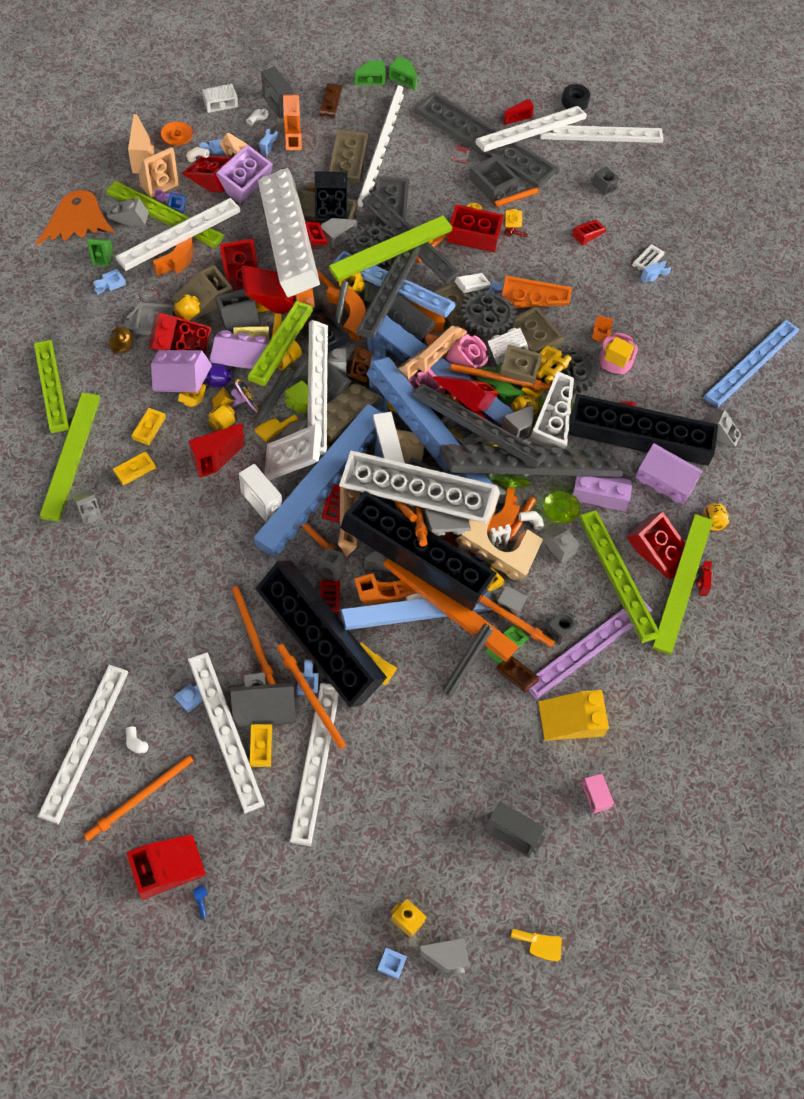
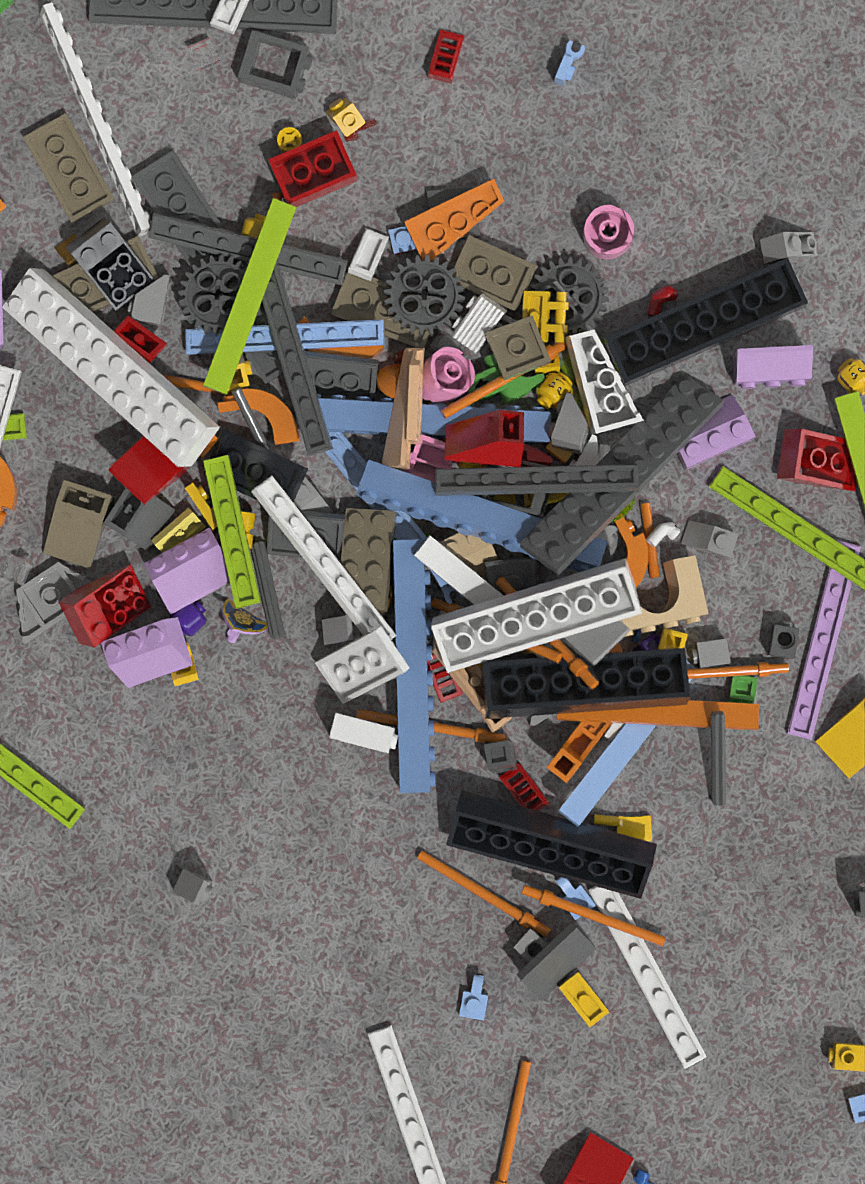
camera: 30 degrees left, 25 degrees up
(70, 457) = (116, 838): lime tile -> none
(121, 337) = (44, 666): pearl gold hair -> none
(133, 742) = (461, 1091): white arm -> none
(134, 468) = (198, 802): yellow plate -> none
(148, 426) = (168, 739): yellow plate -> none
(187, 307) = (80, 559): yellow head -> none
(215, 449) = (269, 725): red slope -> none
(221, 417) = (237, 667): yellow head -> none
(223, 398) = (218, 645): yellow slope -> none
(226, 733) = (540, 1013): white tile -> none
(234, 257) = (84, 447): red slope -> none
(272, 427) = (298, 632): yellow piece -> none
(297, 397) = (299, 576): lime slope -> none
(359, 364) = (334, 484): reddish brown slope -> none
(495, 537) = (650, 592): white tile -> none
(515, 197) = (319, 69): orange bar -> none
(518, 674) = (777, 730): reddish brown plate -> none
(562, 500) = (695, 486): clear neon green dish -> none
(602, 328) = (565, 207): orange bracket -> none
(619, 352) = (616, 245): yellow brick -> none
(651, 247) = (543, 65): white tile -> none
(750, 363) = (764, 115): light blue tile -> none

